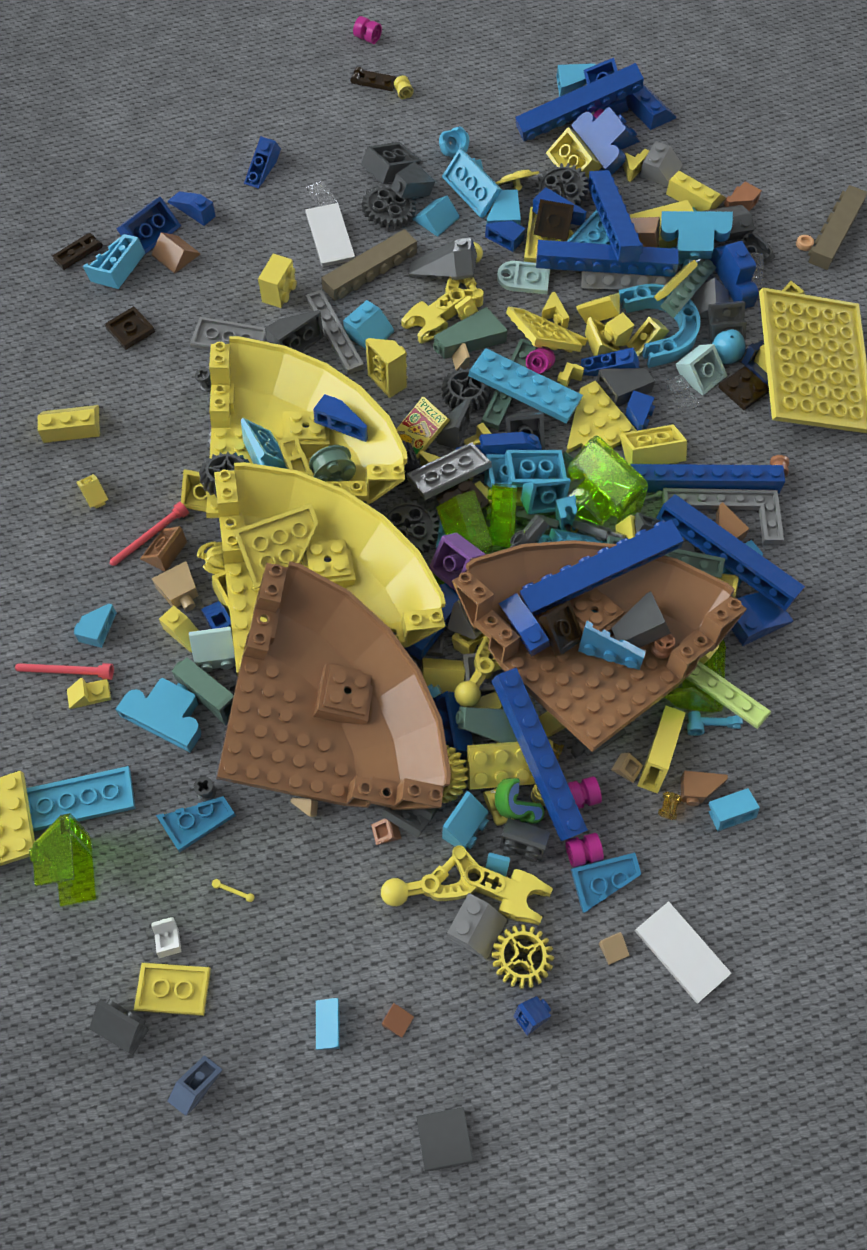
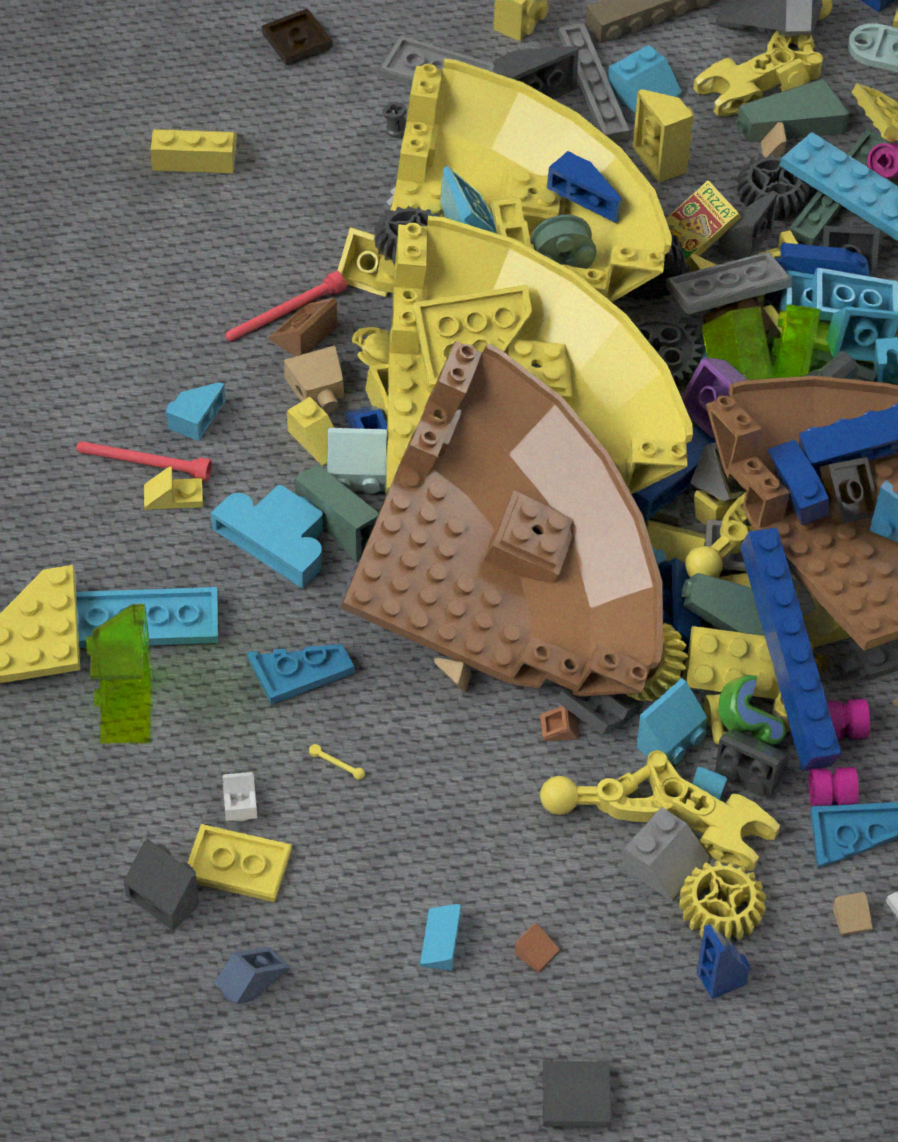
camera: 10 degrees right, 10 degrees down
(92, 491) = (215, 240): light yellow slope -> none
(204, 782) = (317, 630): dark grey bush -> none

